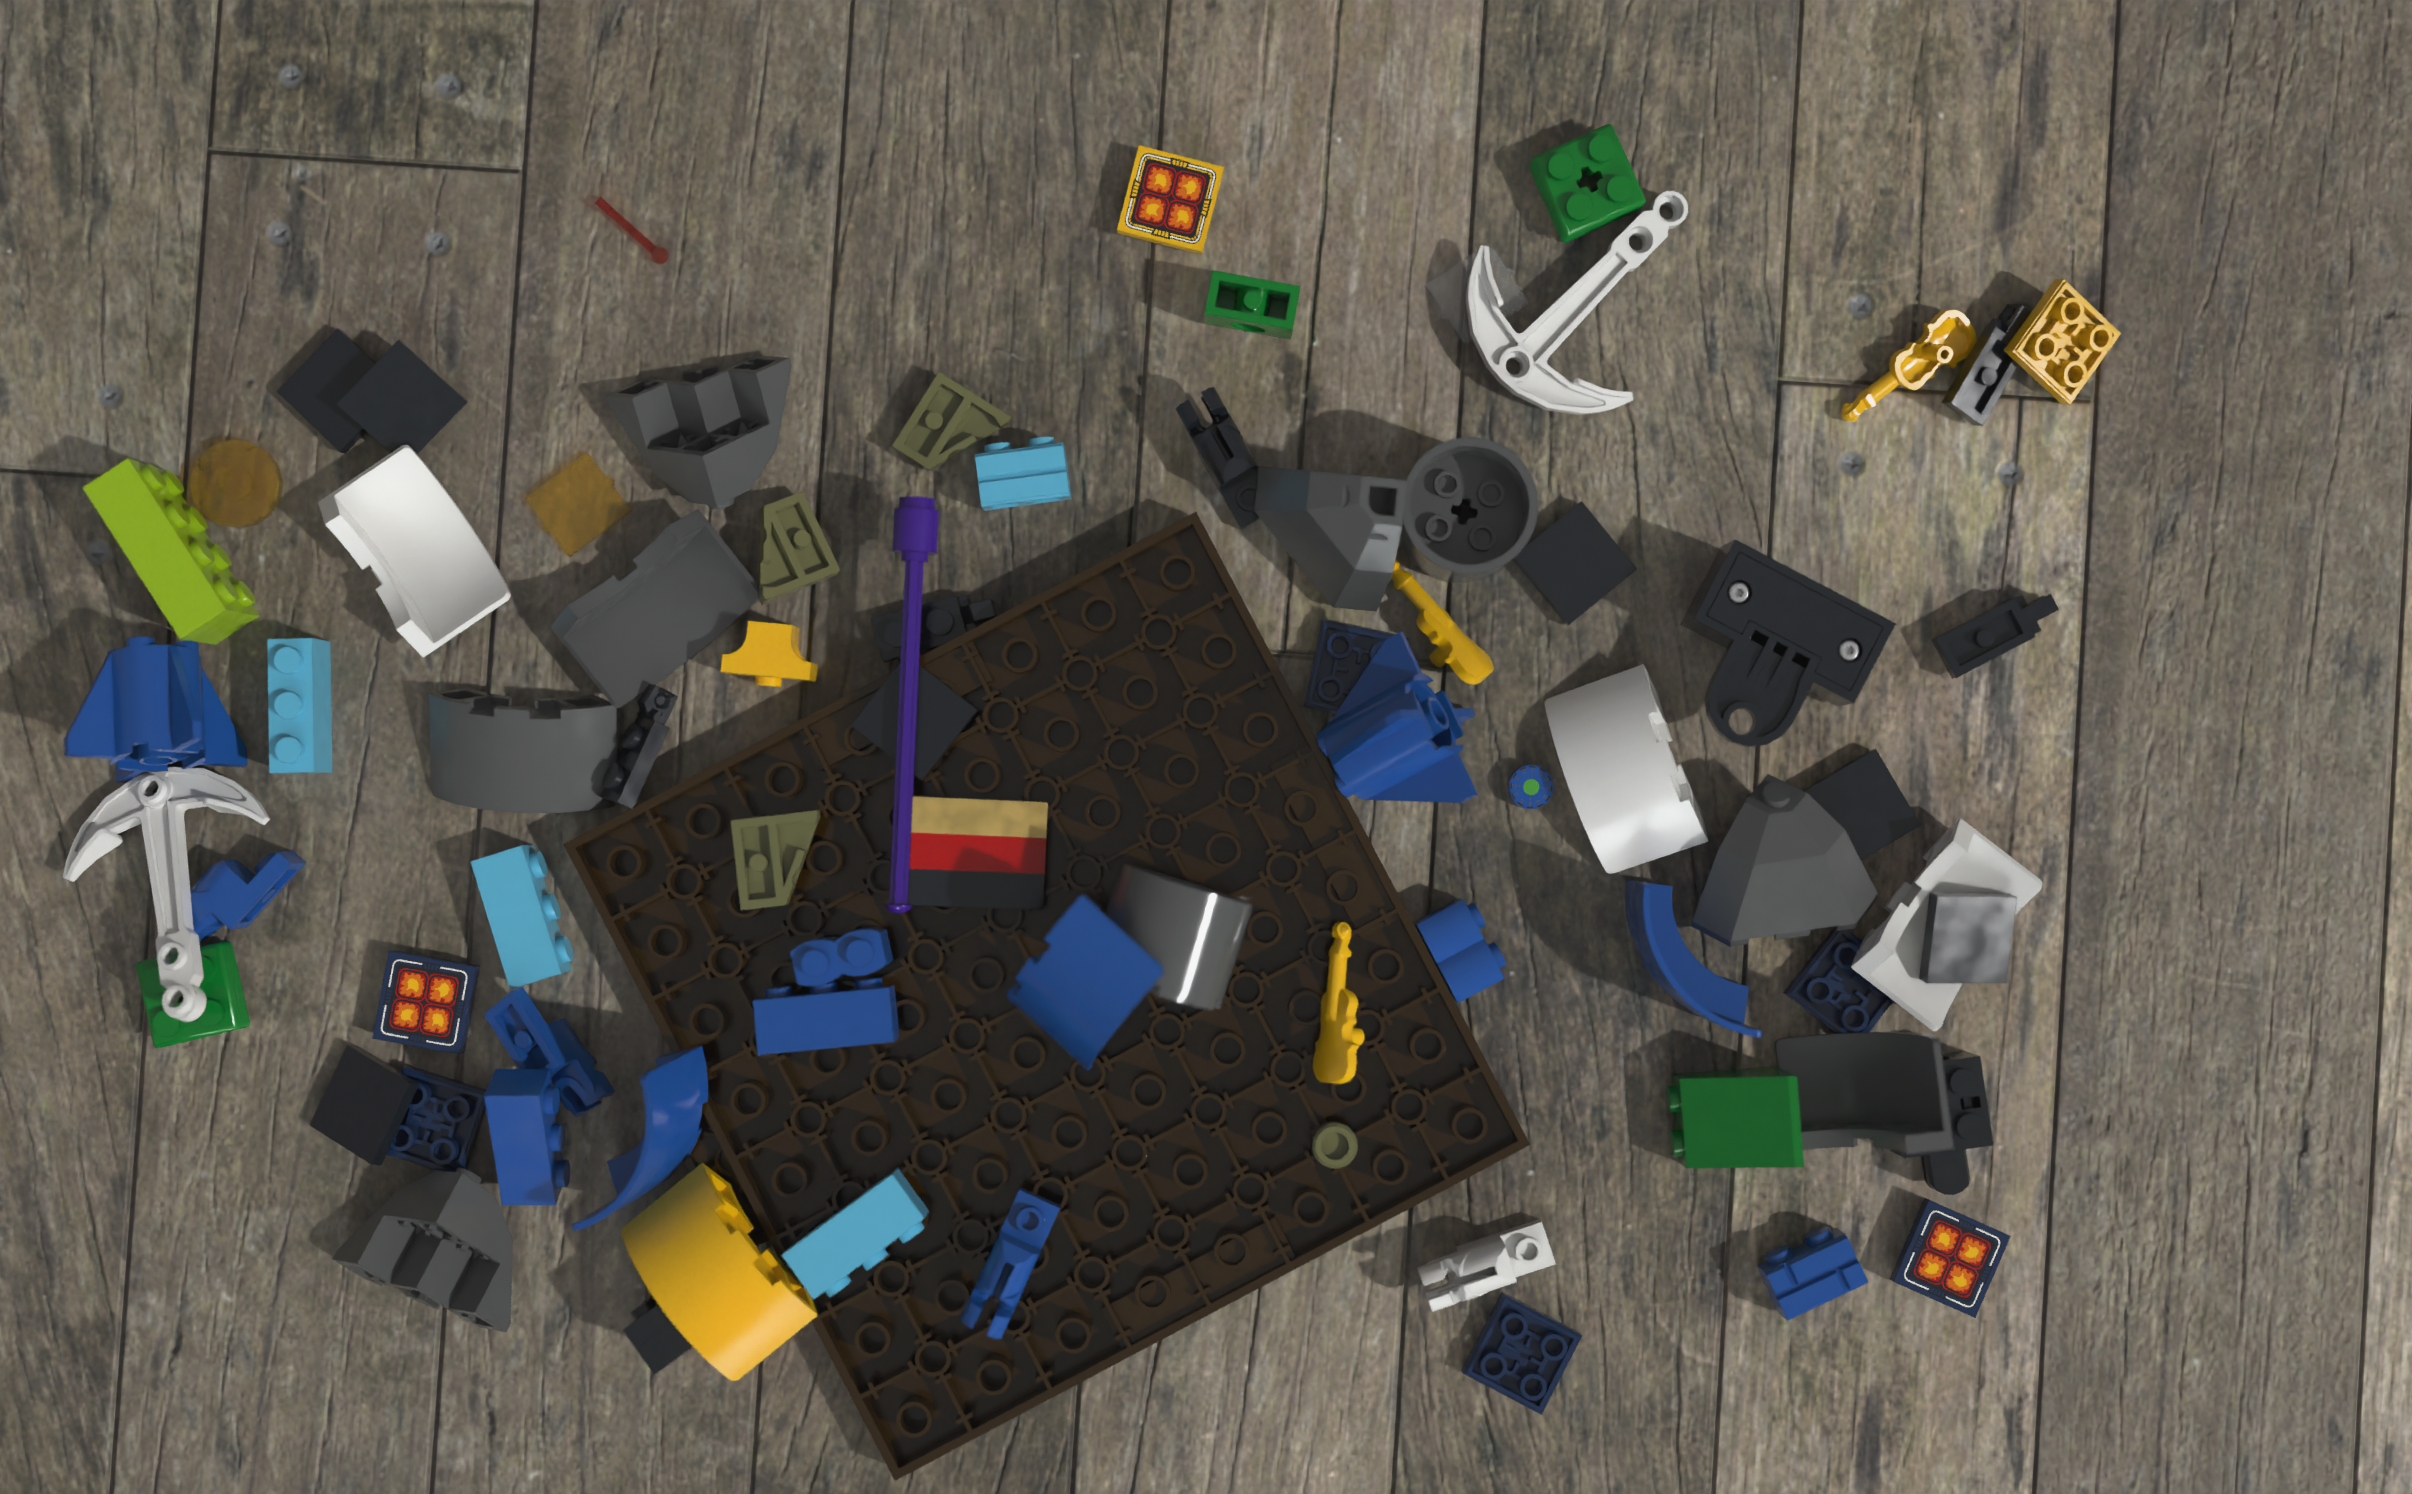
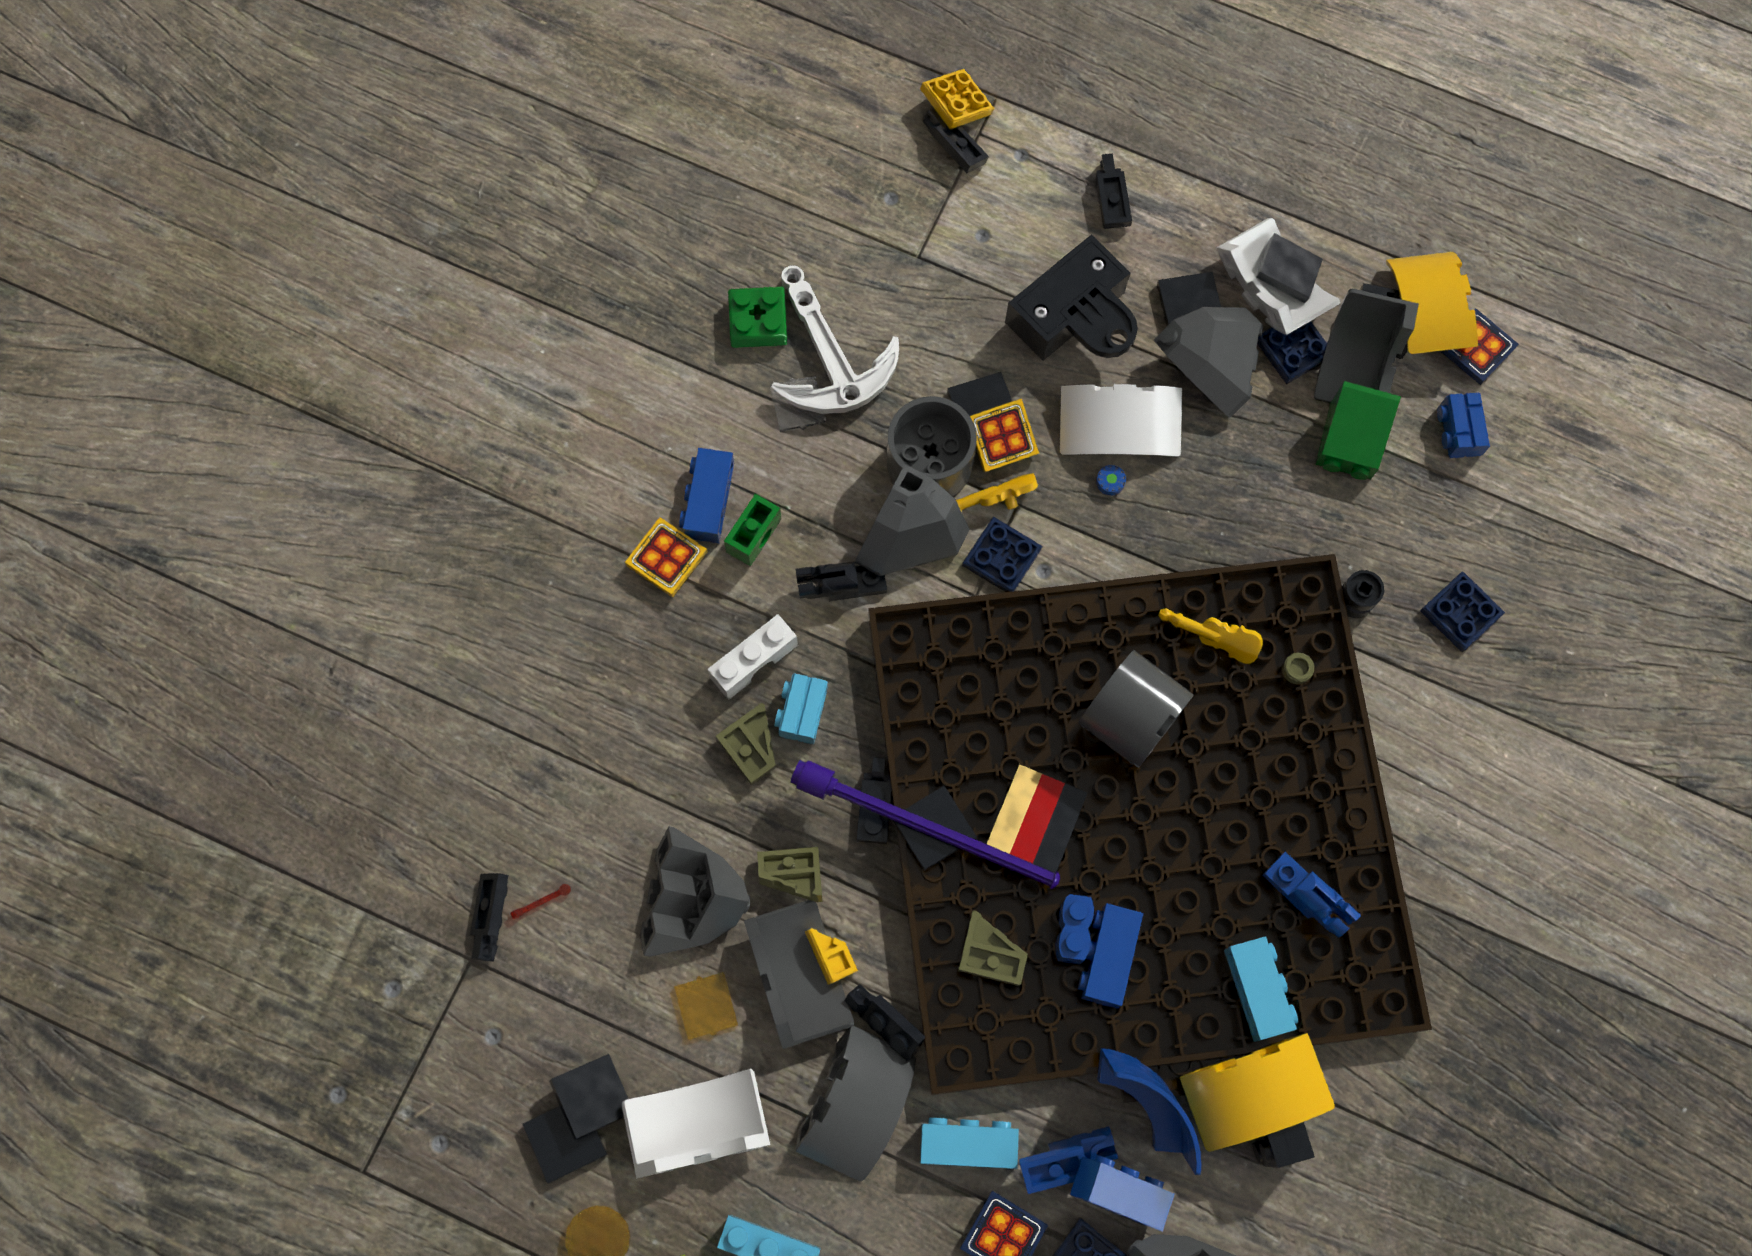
camera: 75 degrees left, 15 degrees down
(583, 168) = (488, 915): none -> black hinge
(700, 645) = (831, 955): none -> yellow tile
(770, 656) = (857, 912): yellow brick -> none
(1070, 377) = (765, 645): none -> white arch
(1084, 981) = (1151, 770): blue panel -> none
(1283, 221) = (707, 495): none -> blue brick
(1397, 735) = (1054, 537): blue brick -> none
(1460, 950) = (1197, 552): blue brick -> none
(1486, 1201) = (1362, 593): none -> black wheel
(1487, 1264) = (1401, 610): white plate -> none
(1534, 606) = (1003, 435): none -> tile
(1674, 966) = (1248, 438): blue panel -> none
(1944, 341) = (932, 161): yellow piece -> none
(1998, 1169) = (1443, 309): none -> yellow panel

